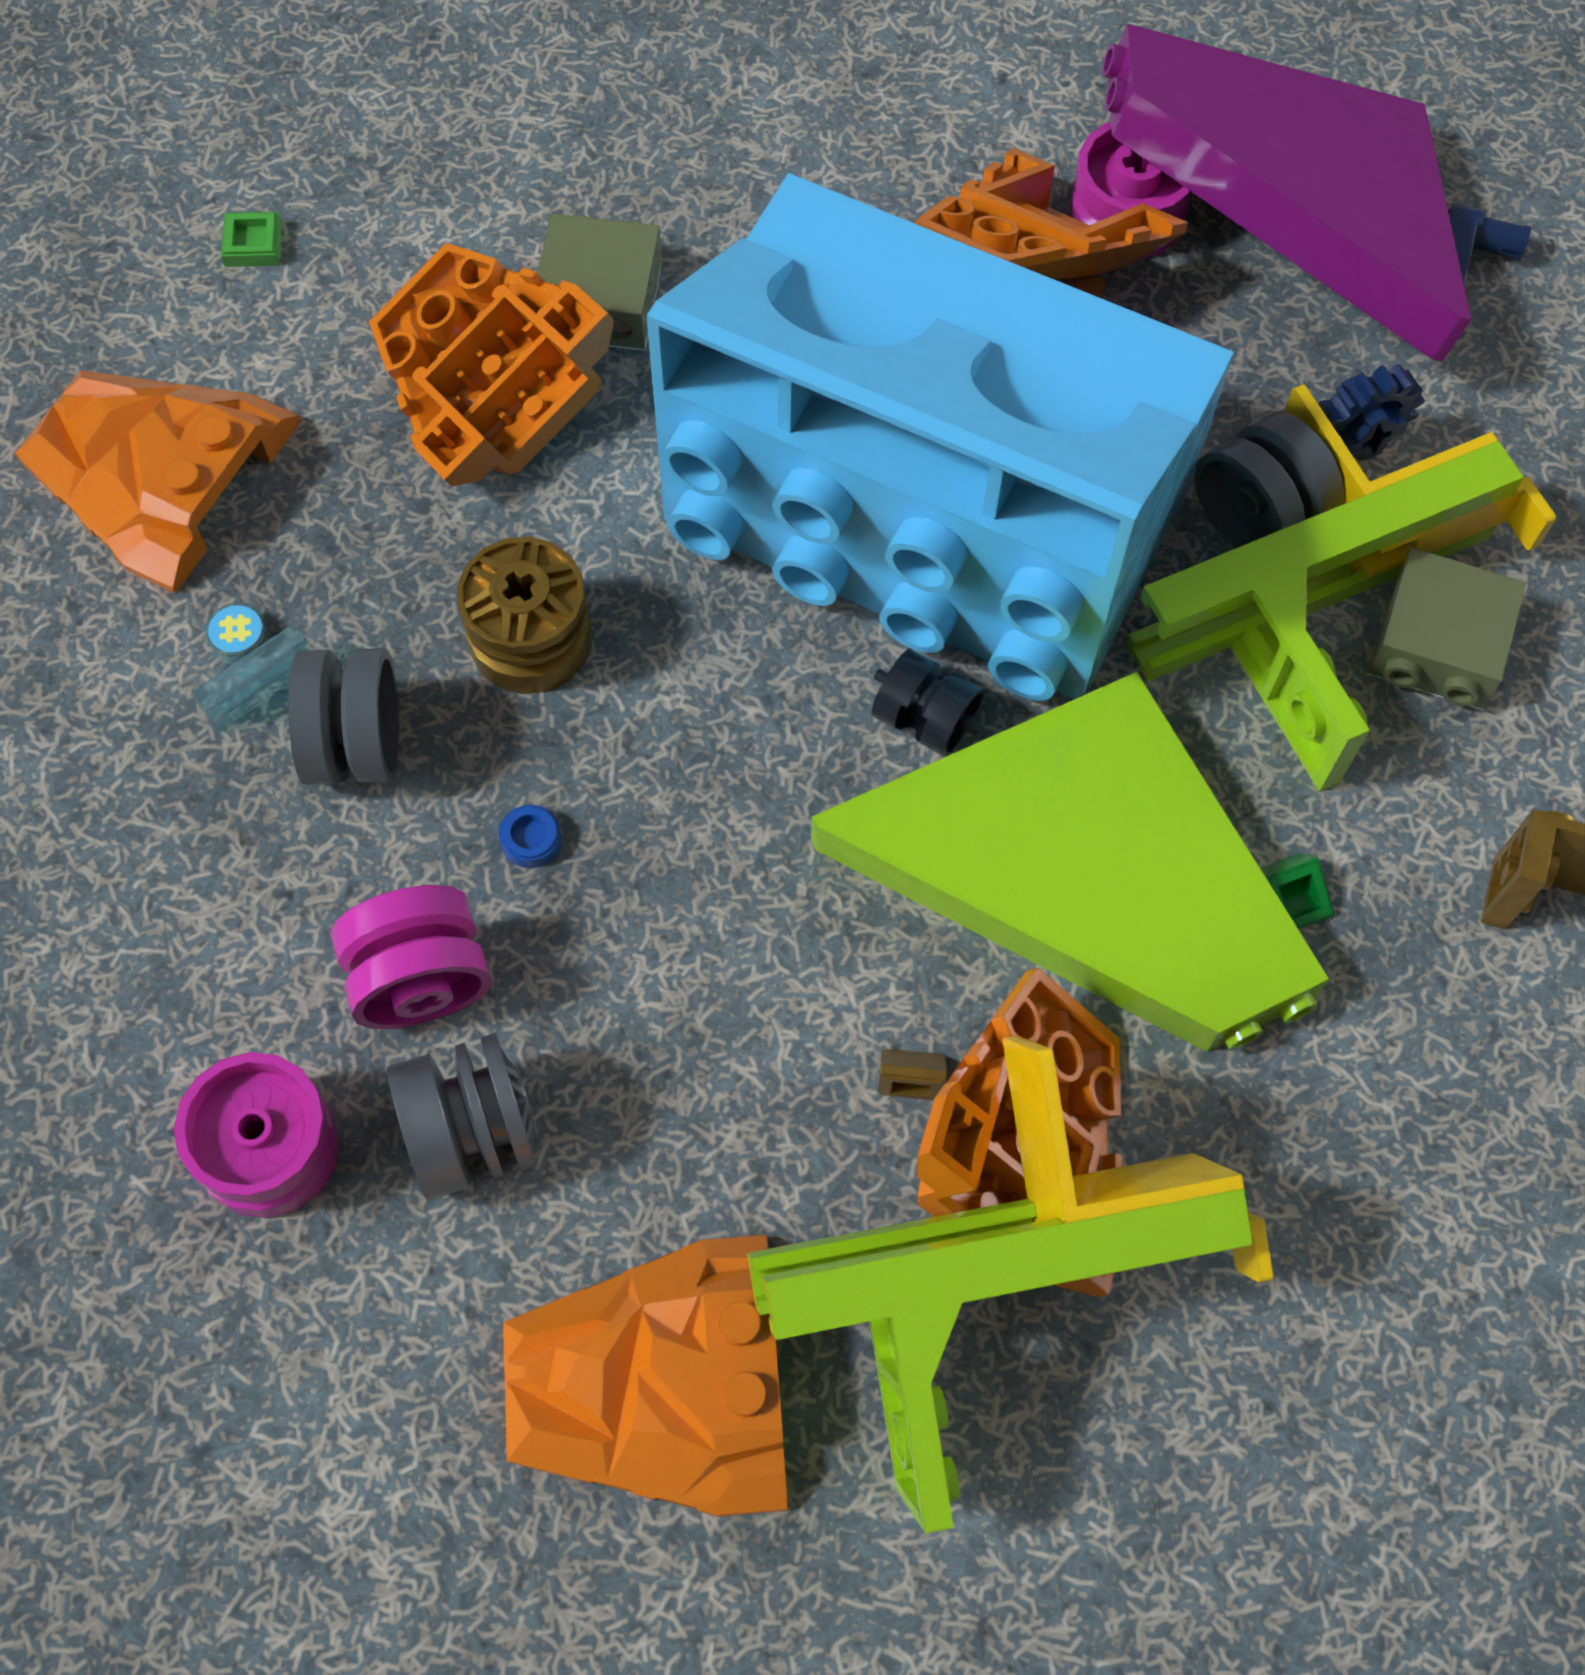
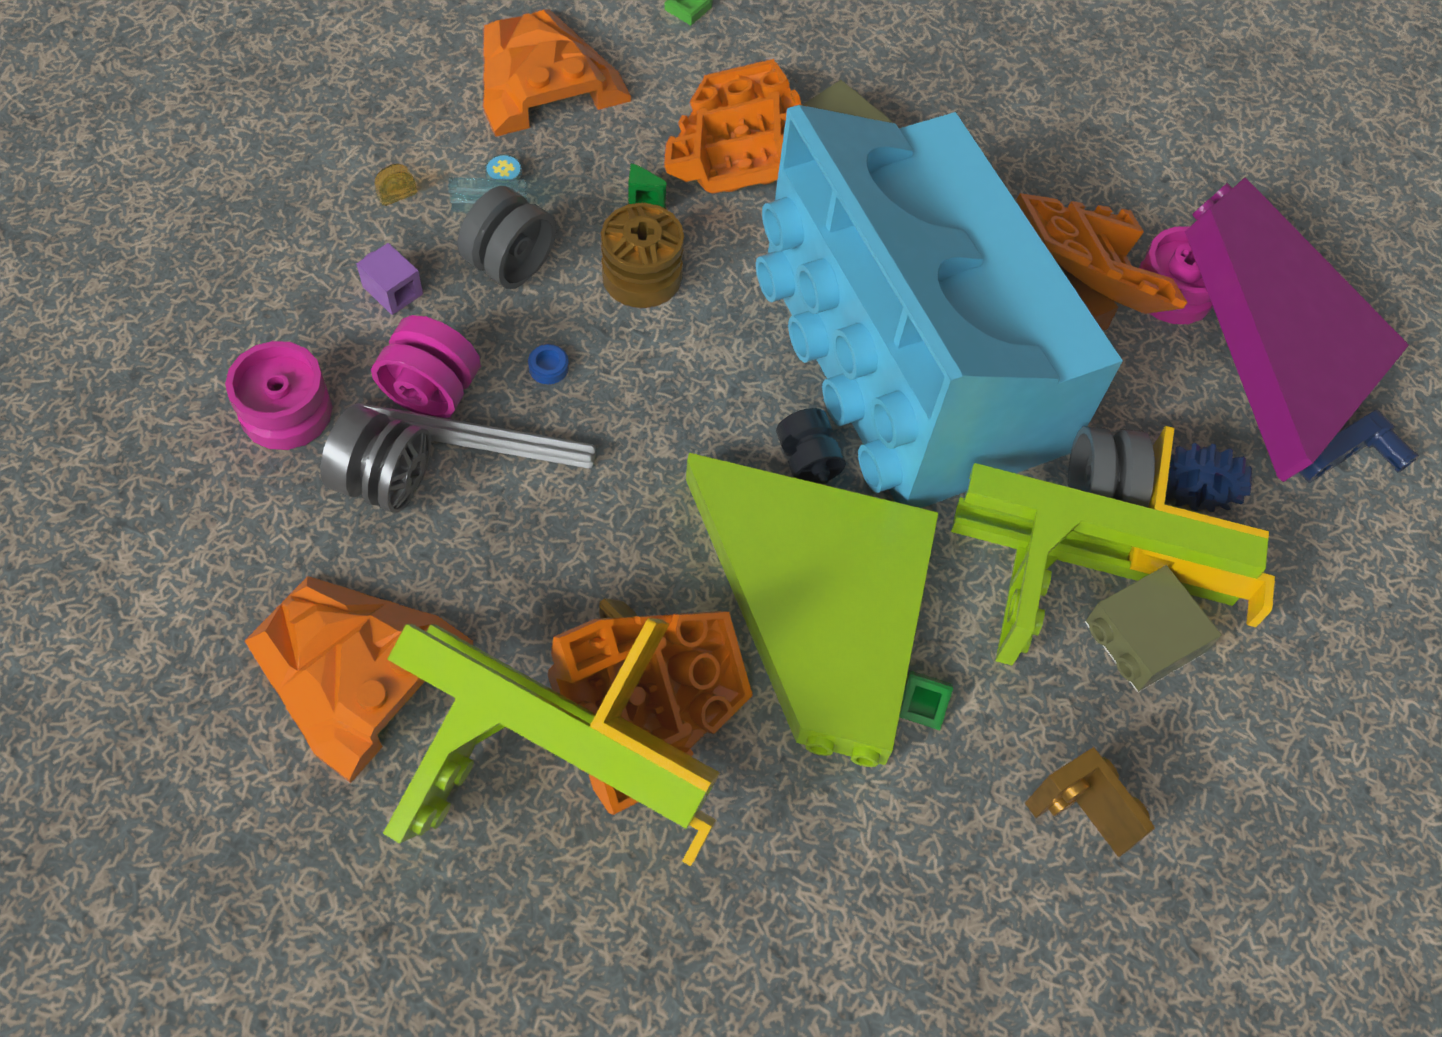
camera: 35 degrees right, 5 degrees down
(117, 754) = (394, 184): none -> clear yellow tile
(236, 880) = (389, 278): none -> medium lavender brick
(440, 526) = (646, 187): none -> green slope
(534, 990) = (497, 439): none -> light grey axle

